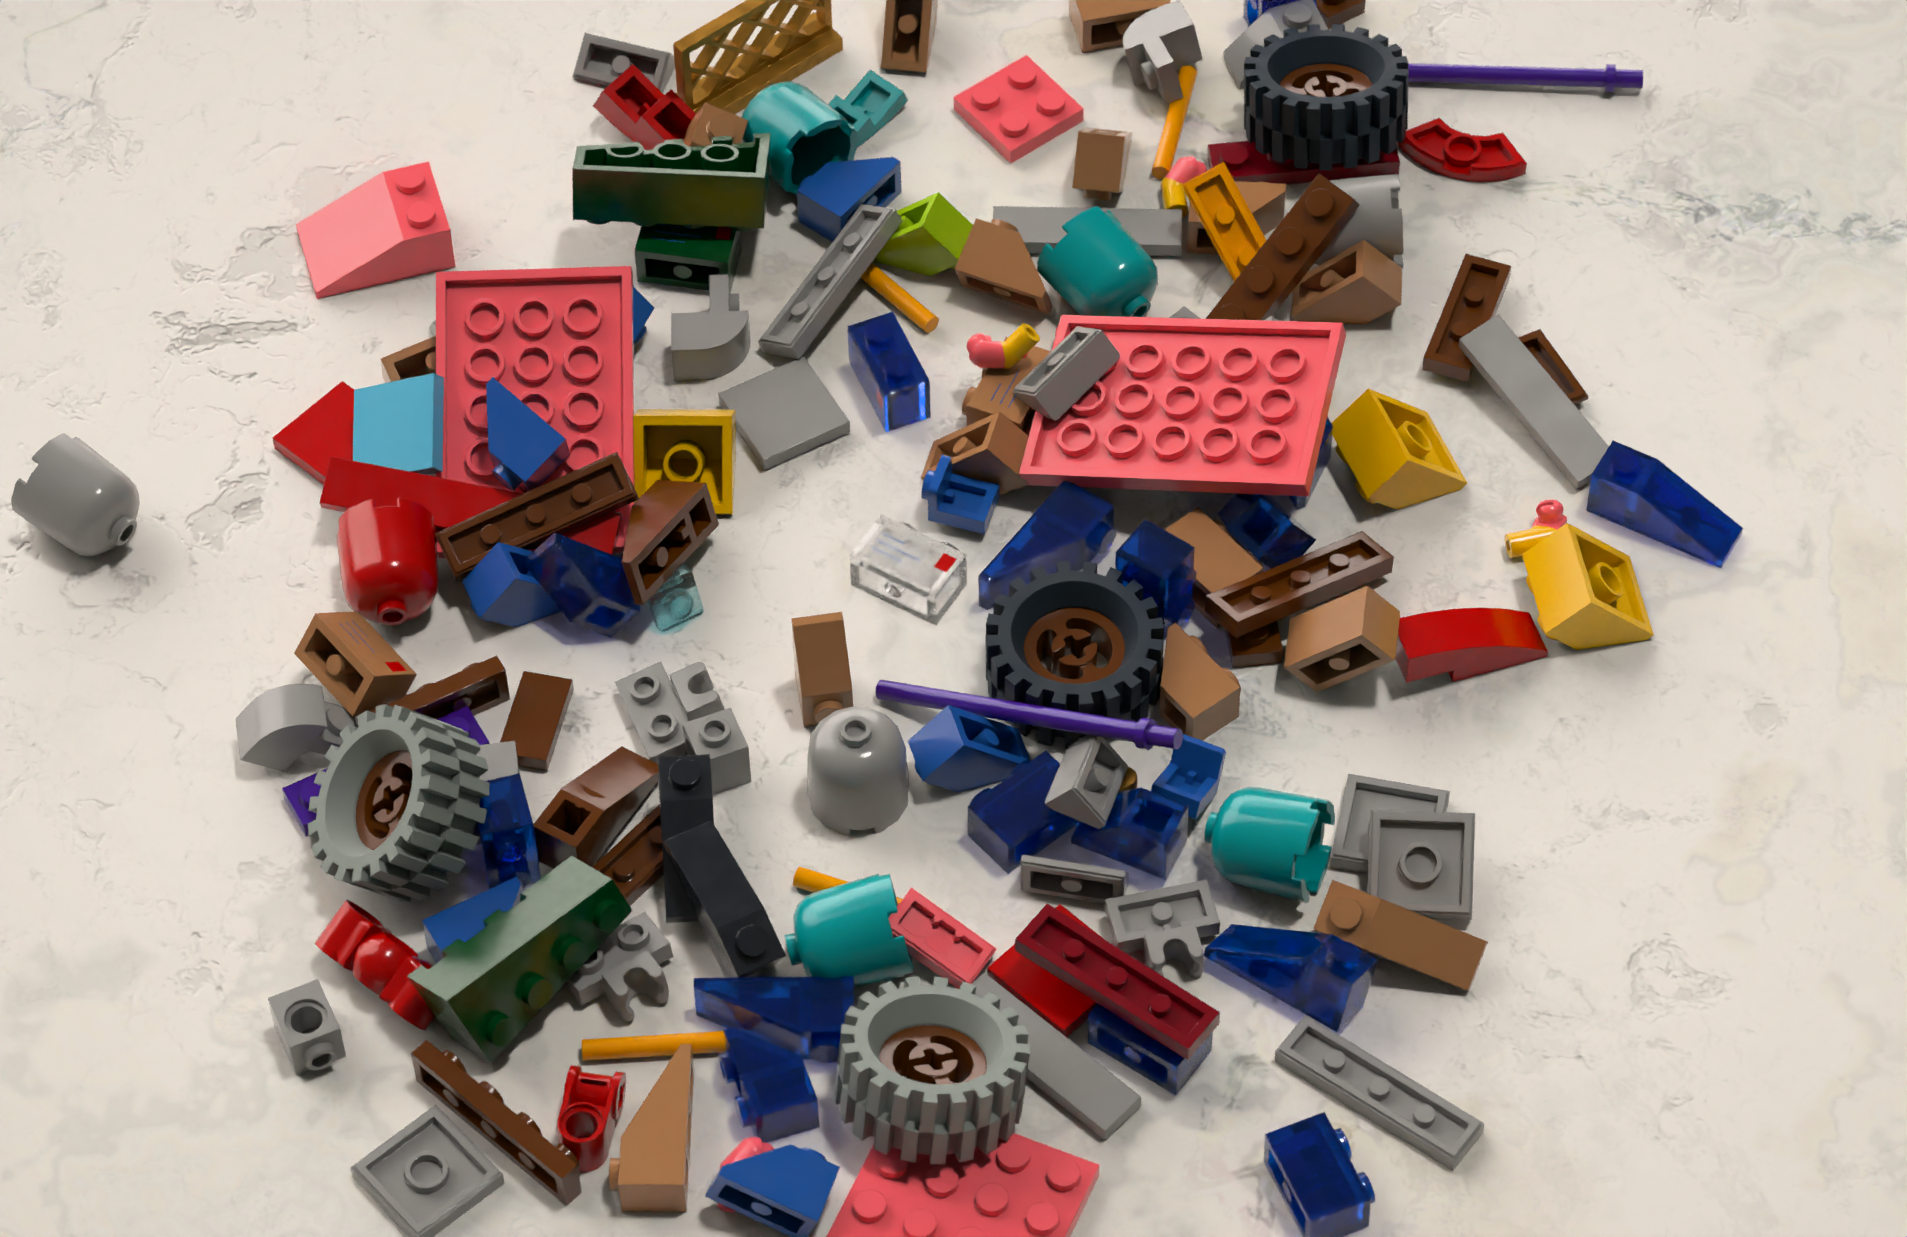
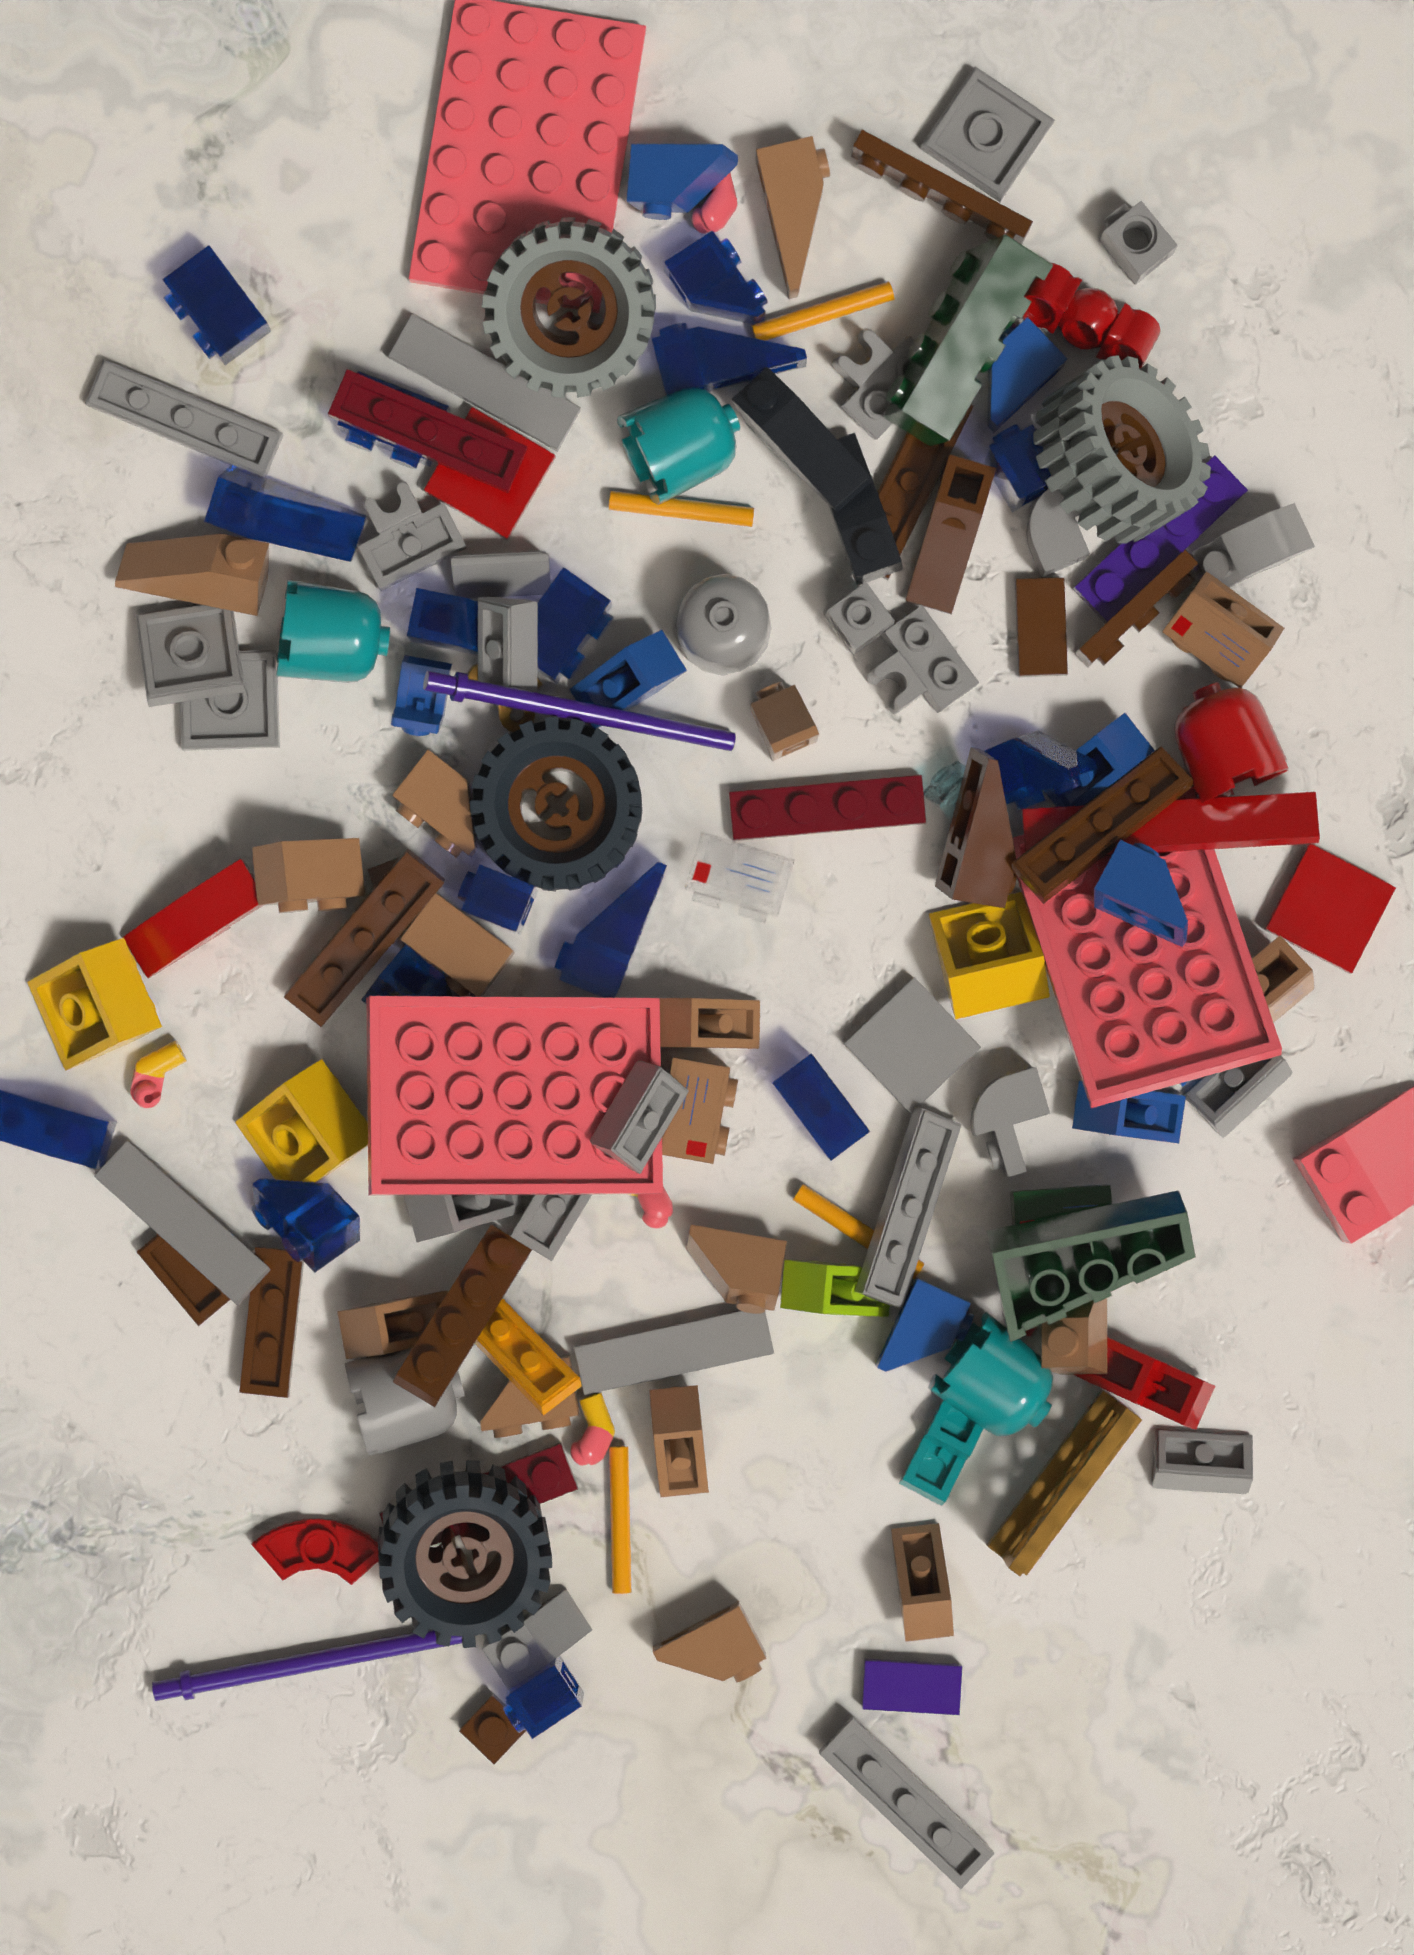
camera: 160 degrees right, 35 degrees up
(401, 424) = (1268, 894): medium azure tile -> none
(590, 1109) = (864, 221): red piece -> none
(768, 613) = (827, 808): none -> dark red plate
(940, 940) = (603, 469): coral plate -> none
(958, 499) = (712, 971): blue bracket -> none
(999, 354) = (706, 1126): arm -> none
(1018, 109) = (783, 1499): coral plate -> none
(1100, 267) = (638, 1272): teal cylinder -> none
(1160, 45) = (659, 1606): light grey brick -> none
(1407, 373) = (308, 1217): none -> clear blue slope

